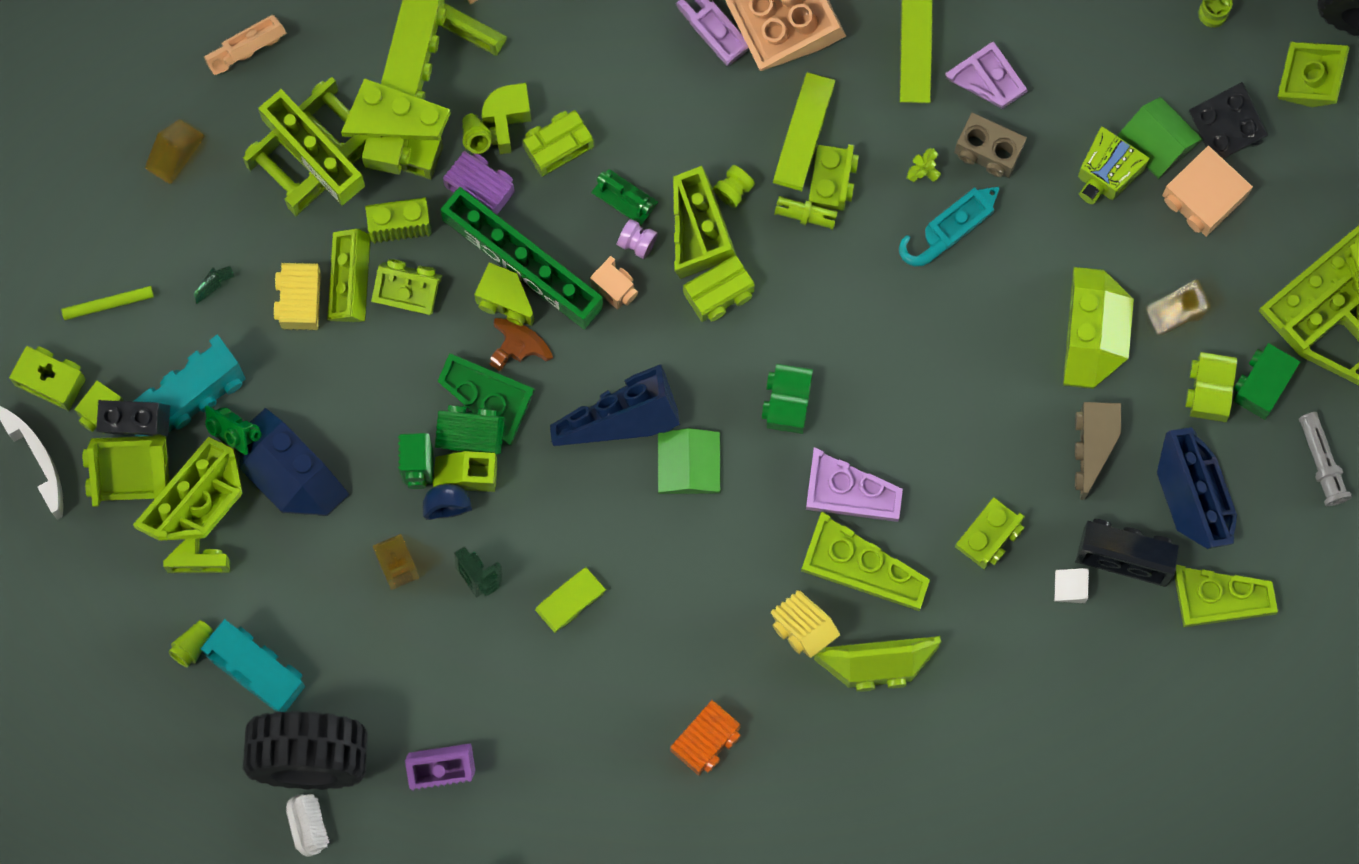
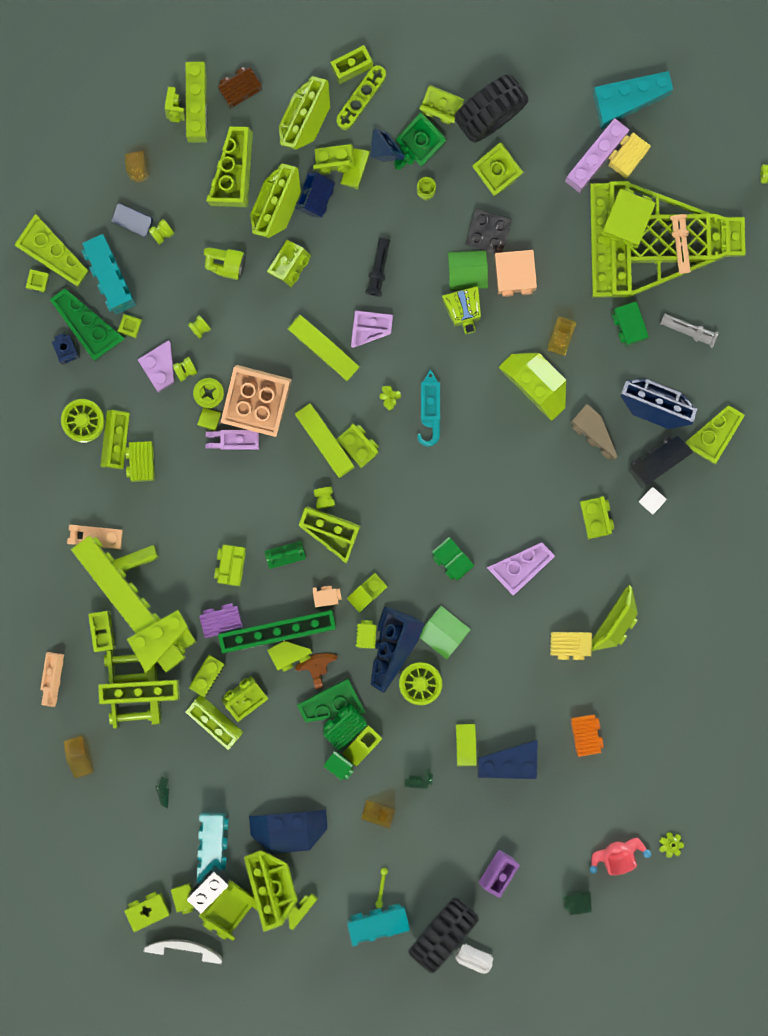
camera: 50 degrees left, 10 degrees up
(107, 303) = (131, 851): lime bar -> none
(188, 646) = (340, 947): lime cone -> none
(231, 428) = (242, 844): green hinge -> none
(283, 652) = (384, 871): none -> lime hinge
(298, 296) = (206, 755): light yellow brick -> none
(351, 54) = (102, 631): none -> lime brick
(445, 502) = (369, 766): dark blue helmet -> none
(476, 135) = (194, 603): lime cone -> none
(505, 107) = (190, 578): lime brick -> none
(593, 671) = (510, 763): none -> dark blue wedge
(601, 481) = (420, 683): none -> lime wheel
(606, 365) = (366, 634): none -> lime brick
(637, 238) = (312, 566): lavender wheel -> none
(660, 330) = (367, 592): none -> lime slope
(719, 289) = (370, 548): lime brick -> none
(805, 212) = (365, 473): lime pin -> none
(860, 565) = (560, 593): lime wing -> none
(994, 138) = (403, 352): dark tan brick -> none
(1059, 39) = (377, 275): none -> black pin
(1212, 386) = (612, 352): lime brick -> none

